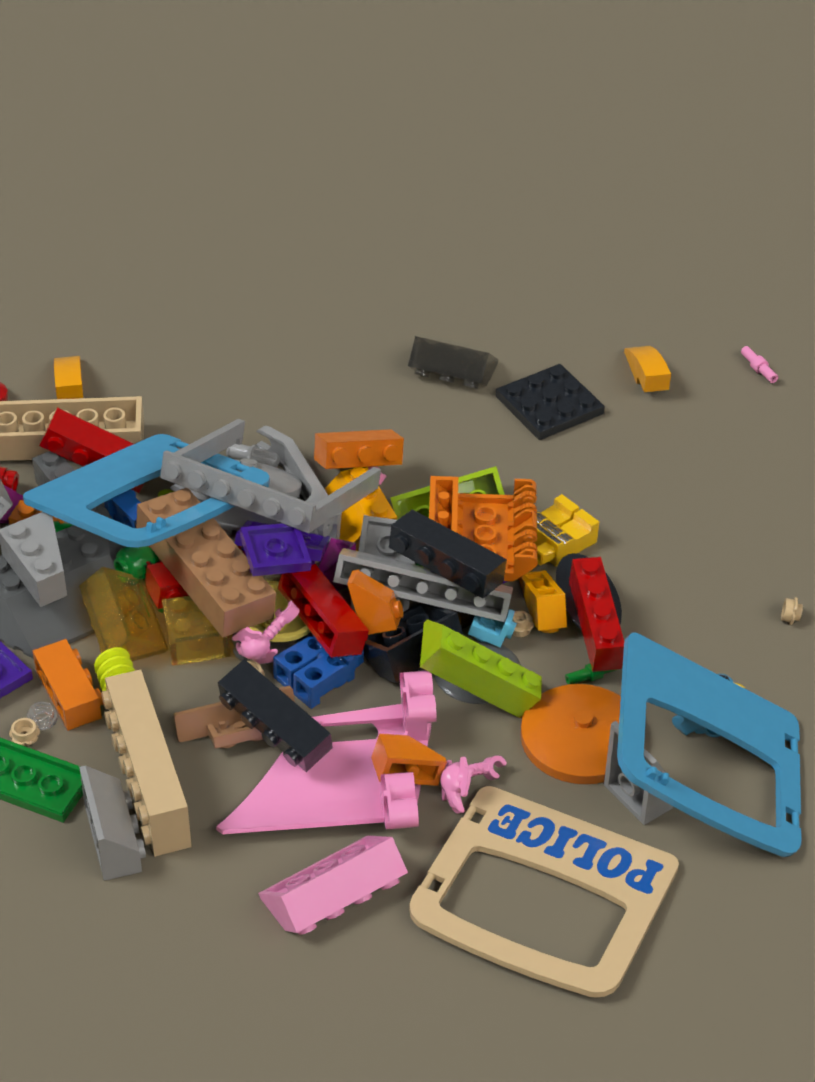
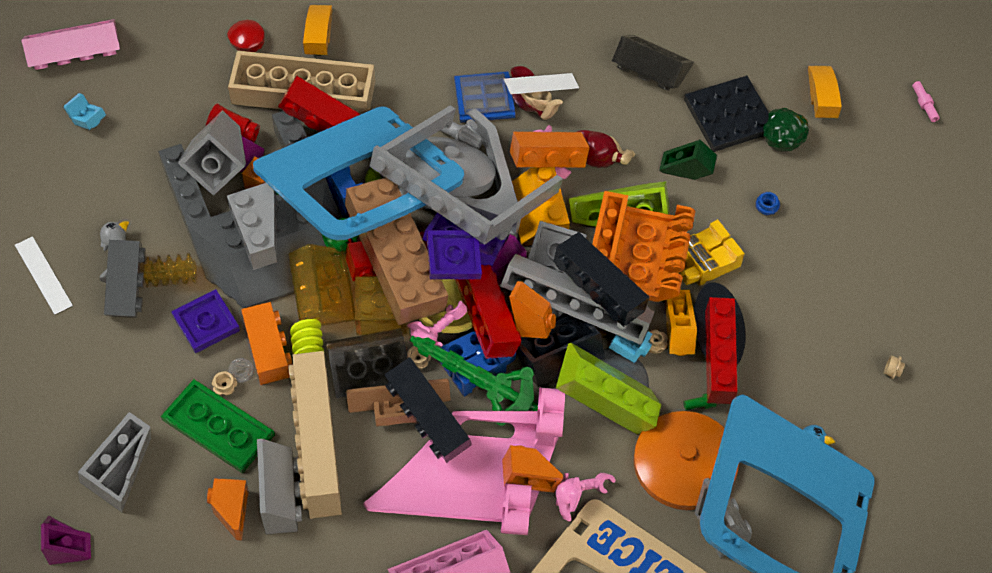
camera: 10 degrees right, 15 degrees up
(54, 851) = (229, 504): none -> orange slope
(187, 683) = (364, 359): none -> clear smoke slope
(278, 412) = (486, 94): none -> clear piece
(325, 409) = (536, 101): none -> hair
(334, 394) = (541, 83): none -> white sticker
(349, 685) = (497, 386): none -> green bar
(421, 449) = (605, 150): none -> dark red hair
(516, 447) = (689, 161): none -> dark green slope
(612, 477) = (767, 198): none -> blue plate
(615, 406) = (785, 129): none -> dark green hair

